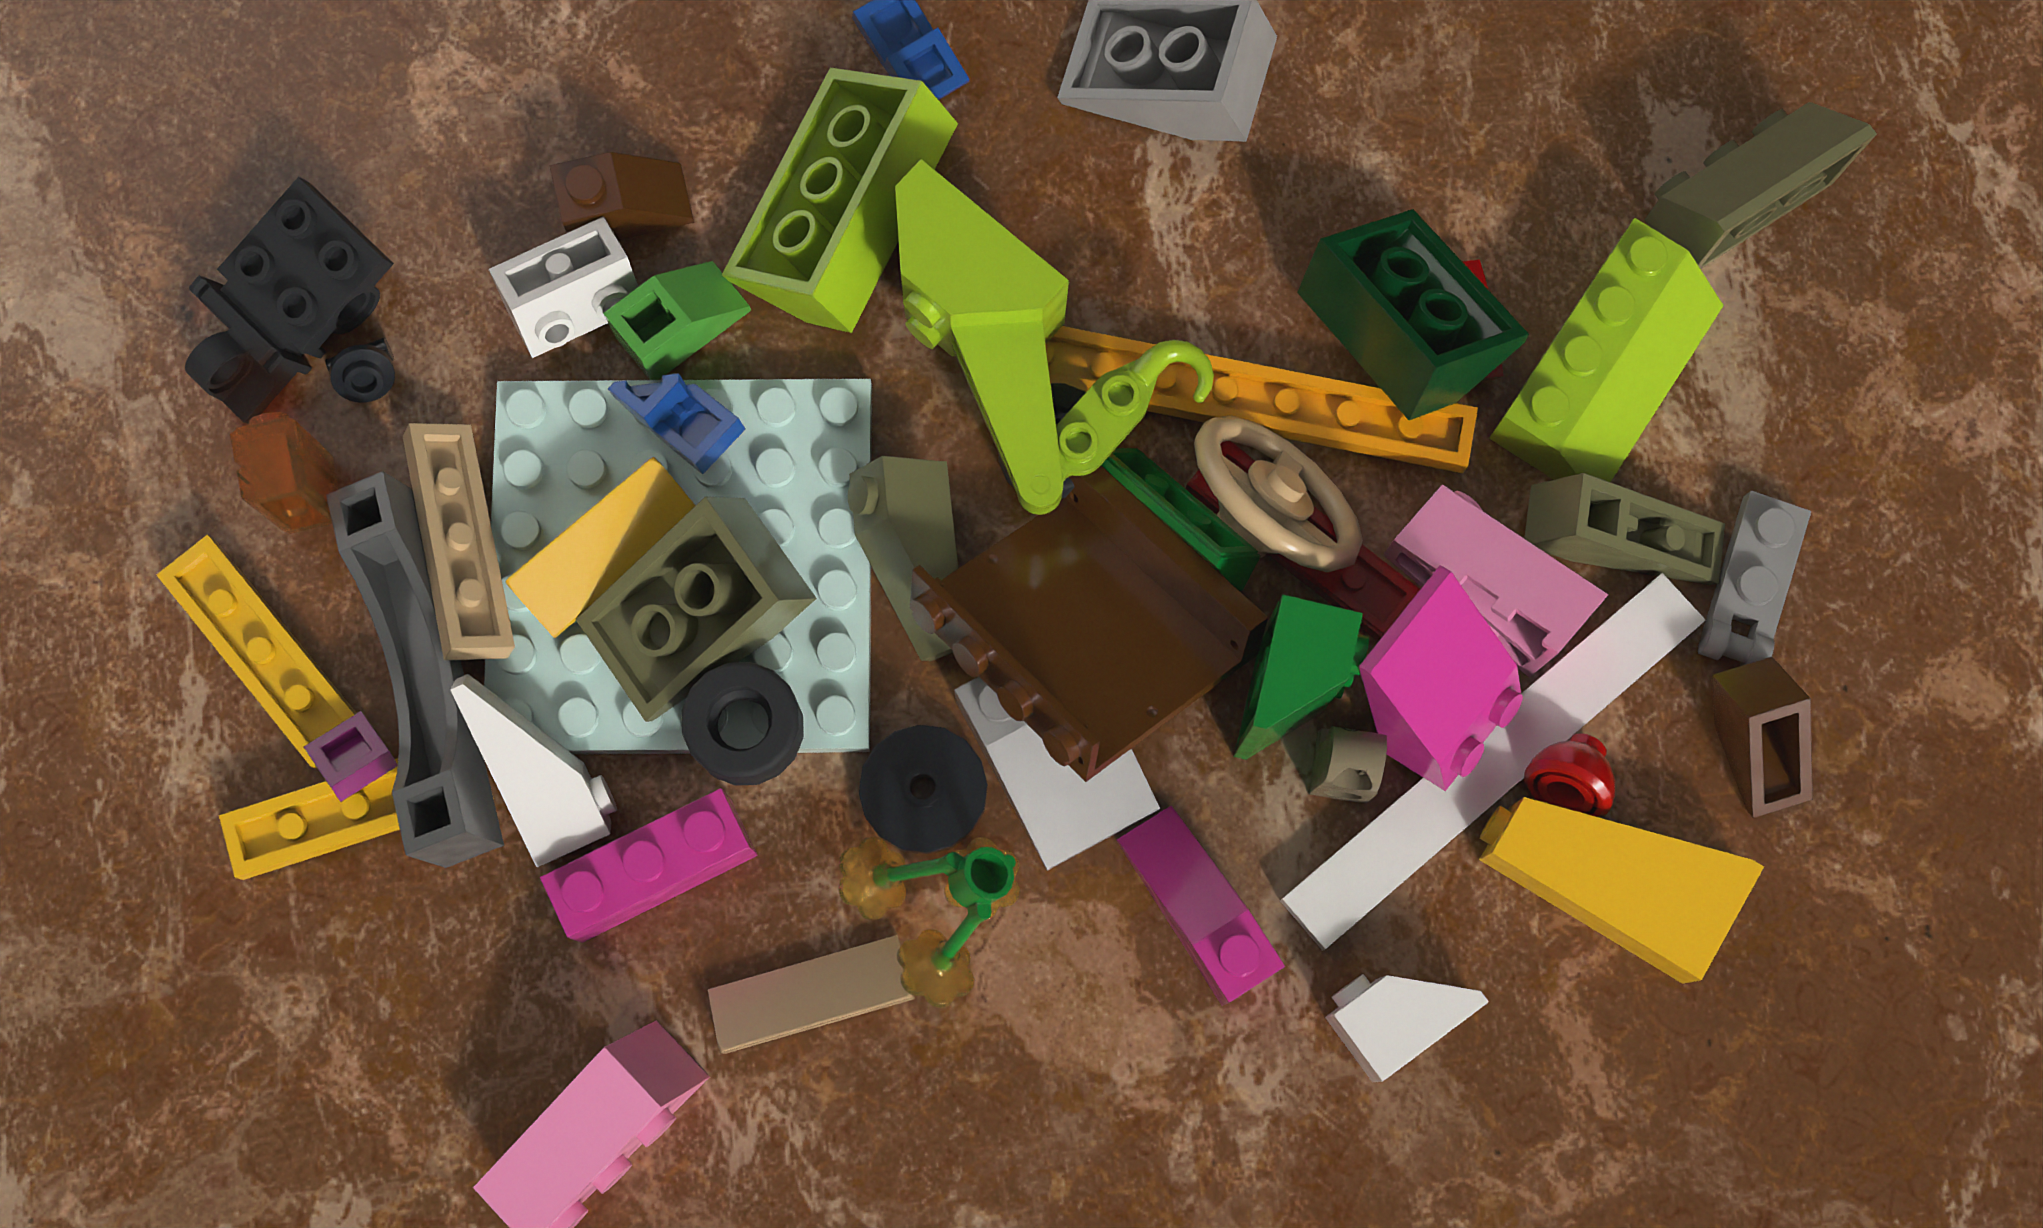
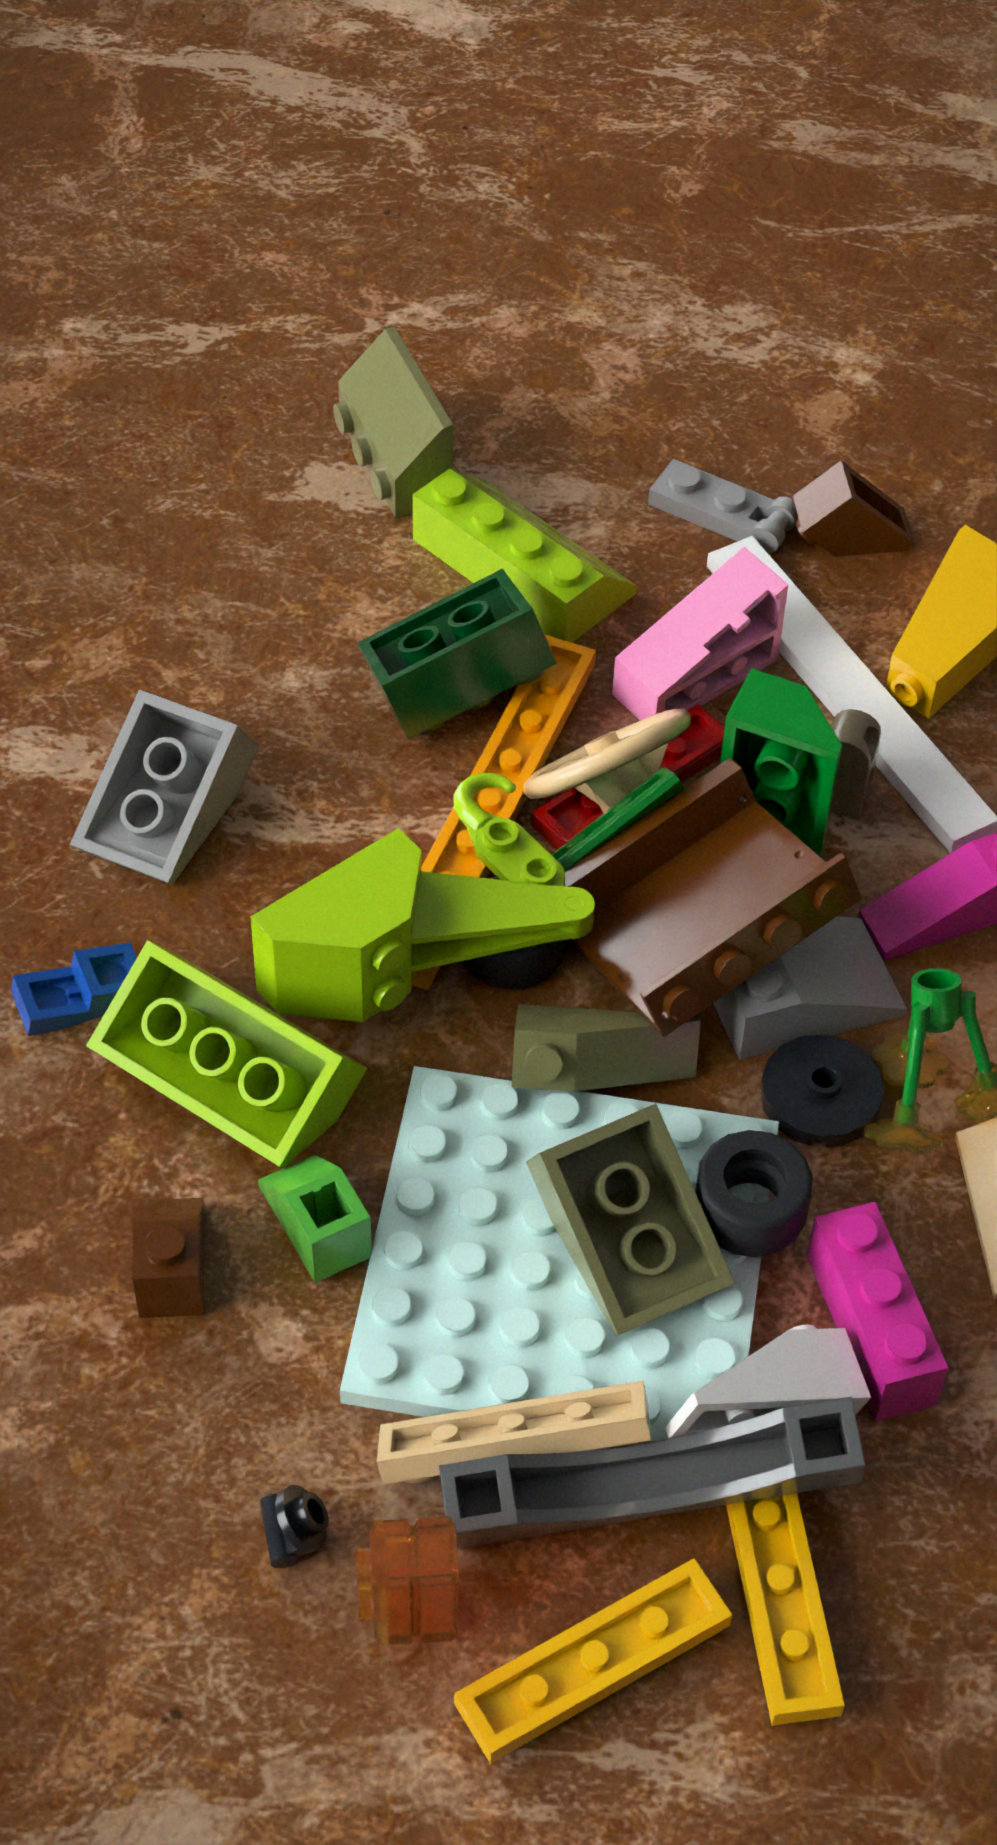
camera: 80 degrees left, 25 degrees down
(285, 293) = (189, 1577): black plate -> none
(350, 756) = (733, 1557): magenta plate -> none
(564, 286) = (263, 1295): white brick -> none
(600, 547) = (549, 1298): yellow slope -> none
(682, 418) = (428, 1212): blue slope -> none
(1440, 683) = (802, 662): dark pink slope -> none
(1573, 776) = (873, 632): red brick -> none
(1623, 530) = (666, 568): olive slope -> none

